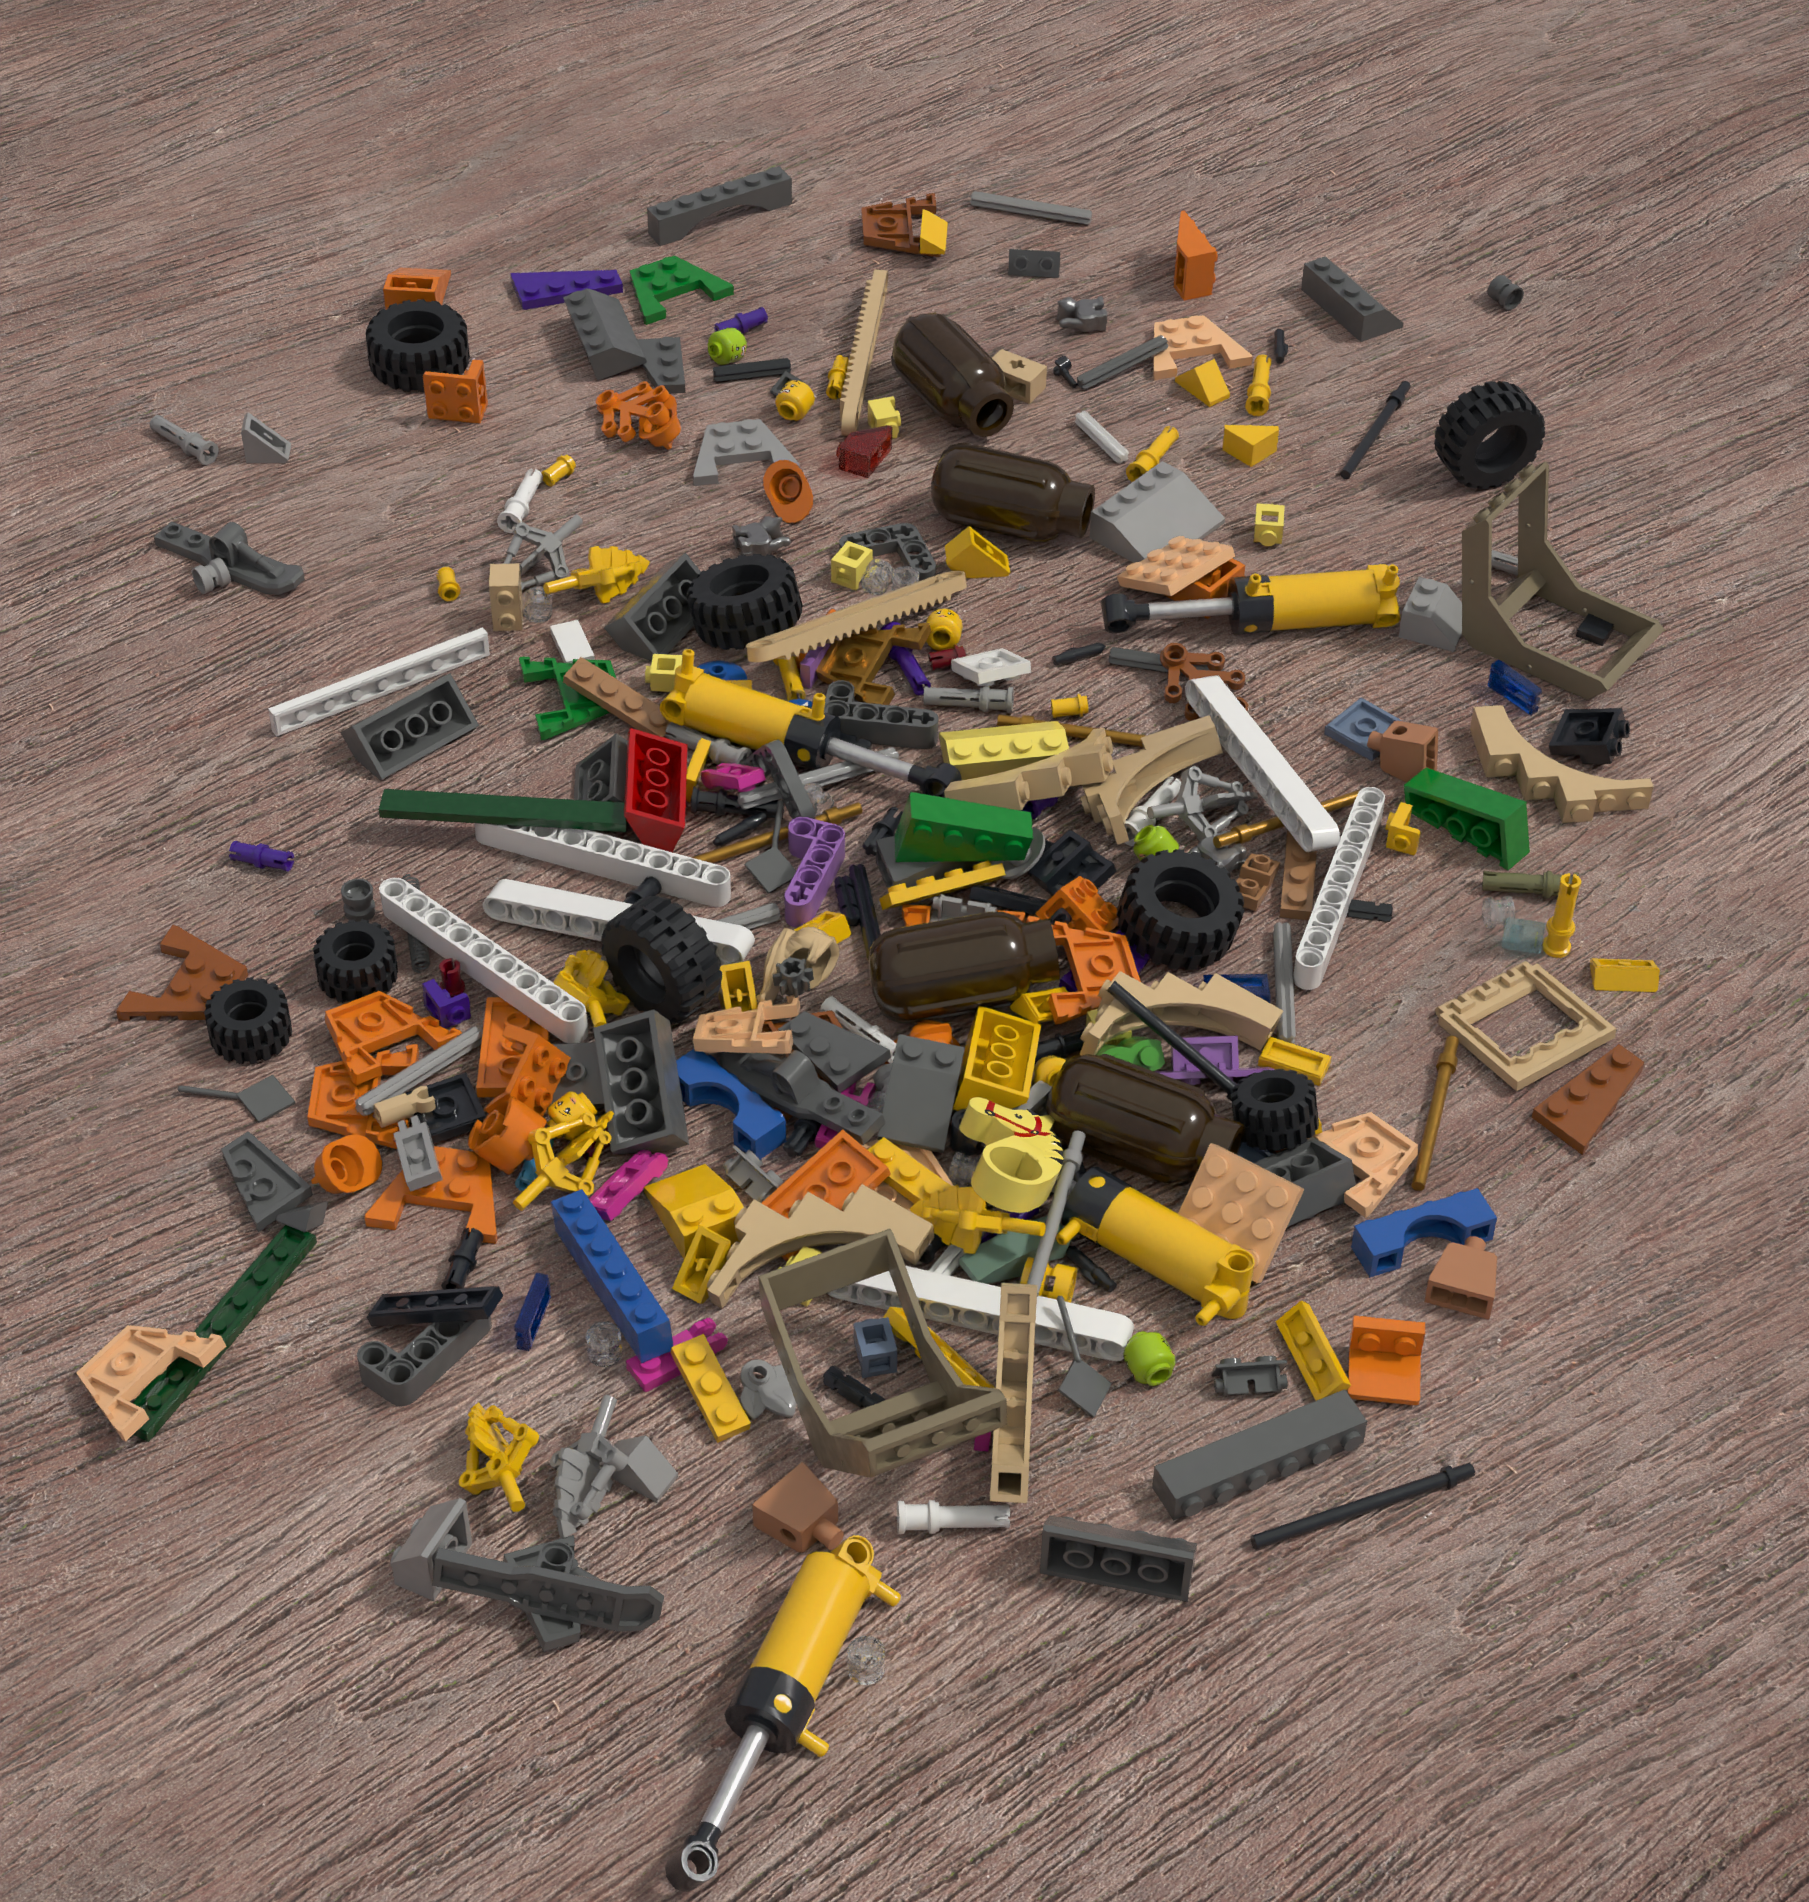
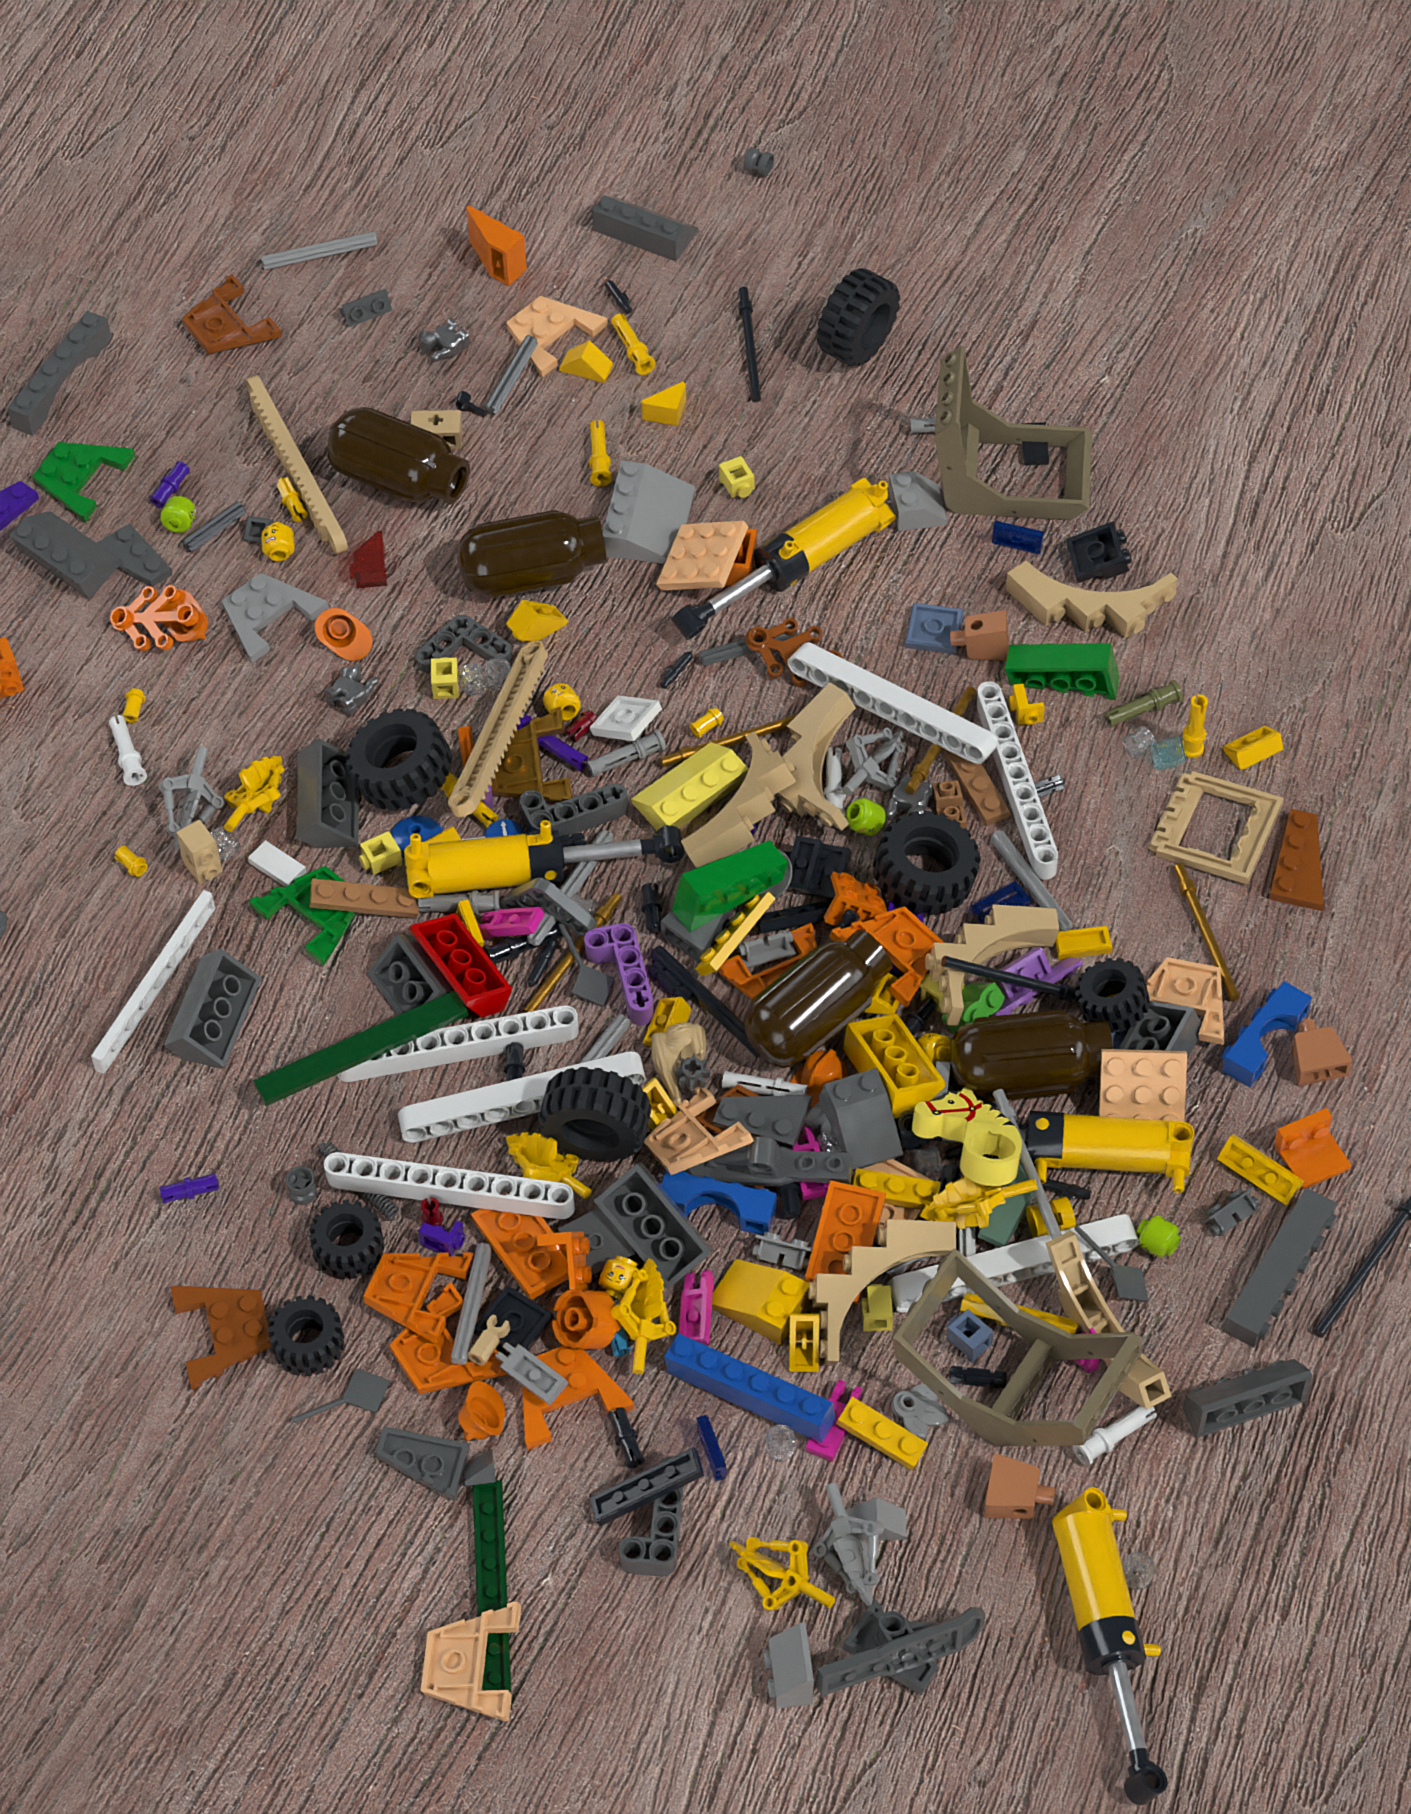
camera: 30 degrees left, 10 degrees up
(883, 413) = (361, 523): light yellow brick -> none
(933, 234) = (266, 319): yellow slope -> none
(1101, 437) = (545, 455): white axle -> none

